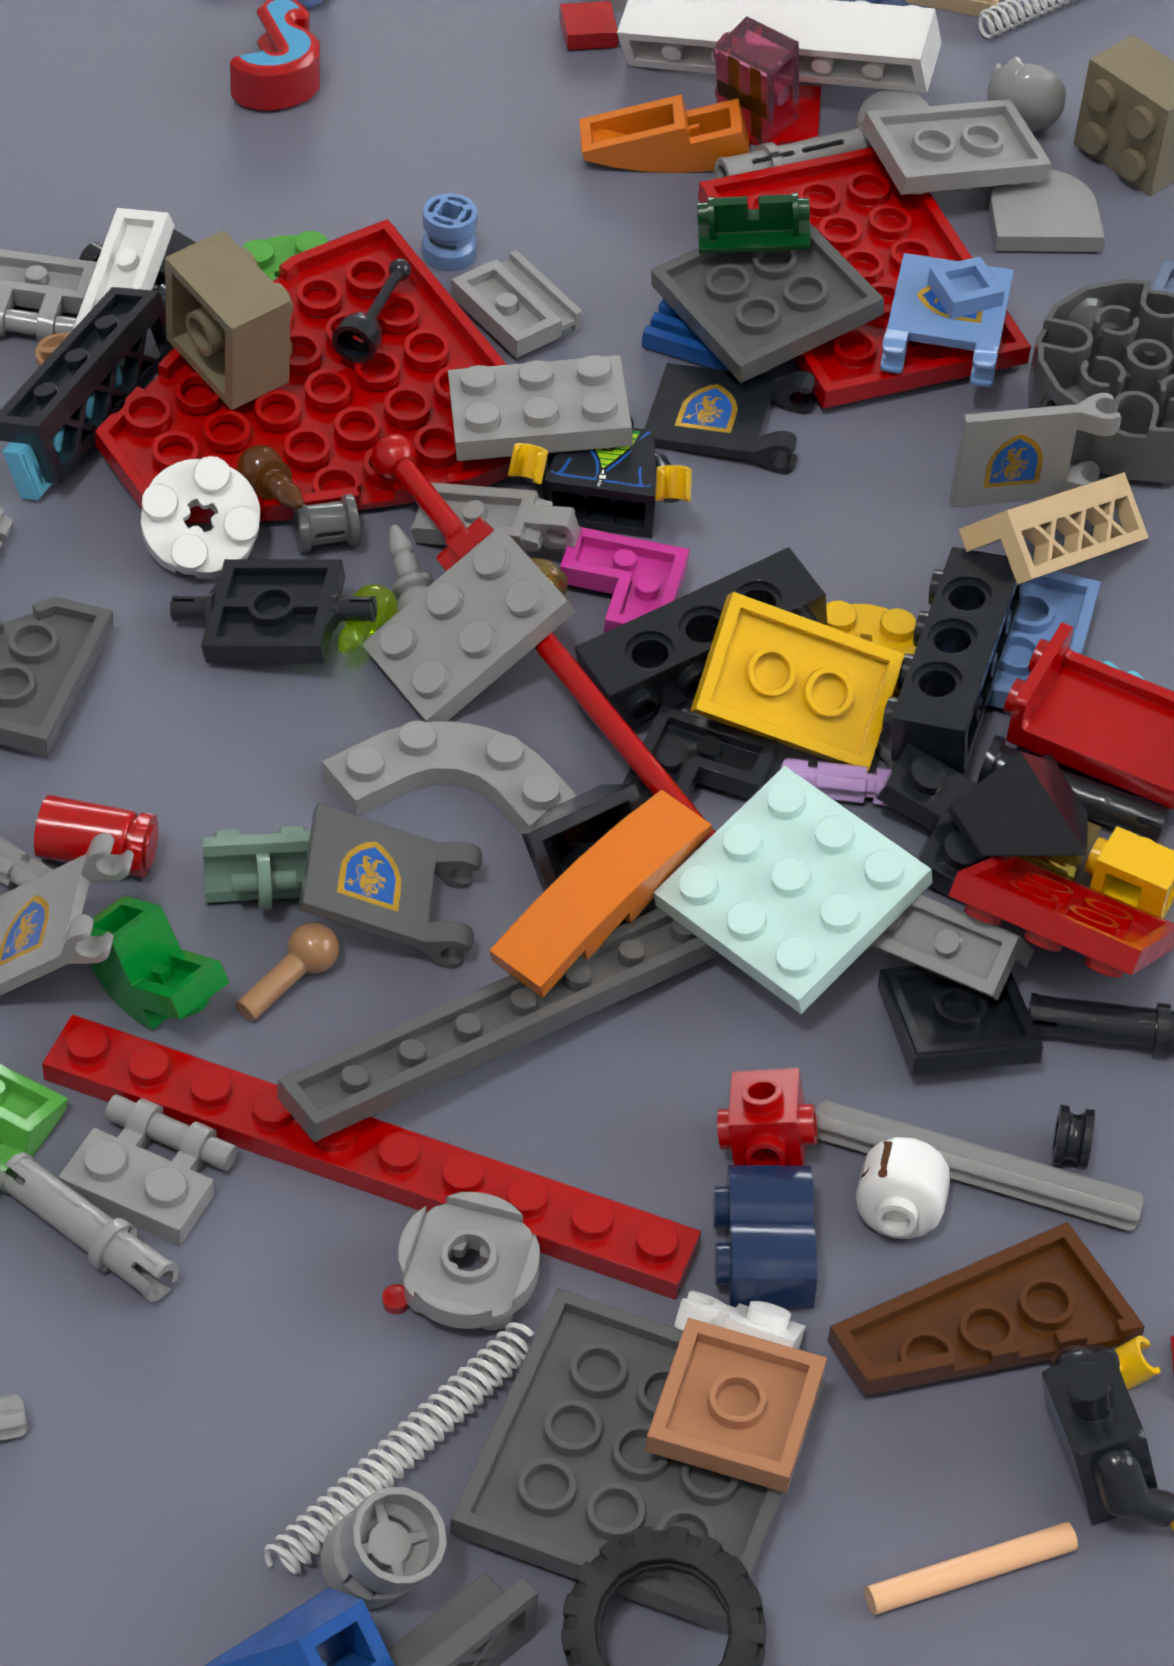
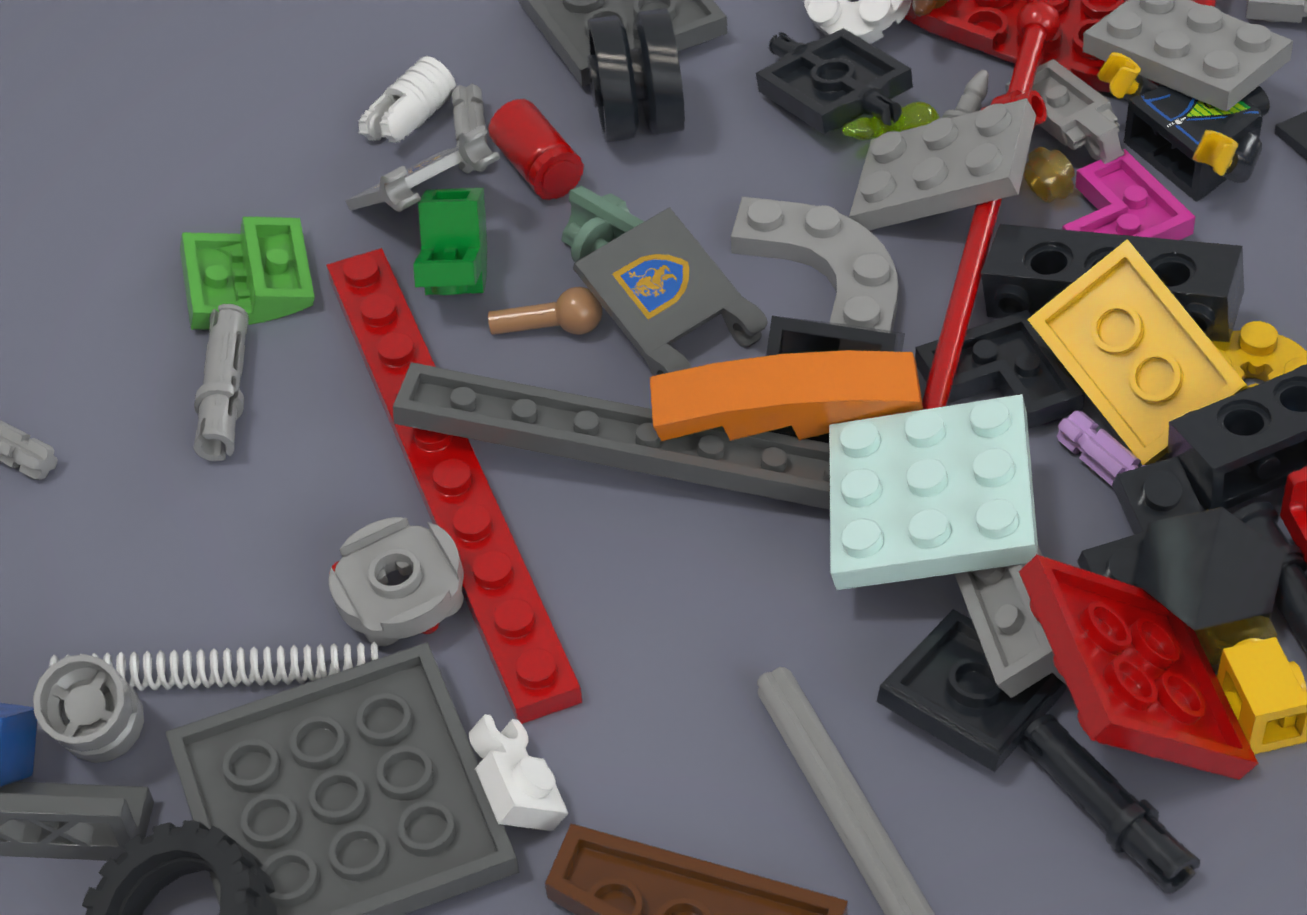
camera: 55 degrees right, 0 degrees up
(127, 709) = (635, 75): none -> black wheel
(143, 1186) = (288, 380): light grey plate -> none
(327, 524) = (948, 46): dark grey bush -> none
(736, 1405) = (416, 813): nougat plate -> none
(767, 1118) = (712, 646): red brick -> none
(767, 1235) = (617, 728): dark blue brick -> none
(905, 1183) = (757, 773): white head -> none
(1073, 1137) = (943, 845): black bush -> none

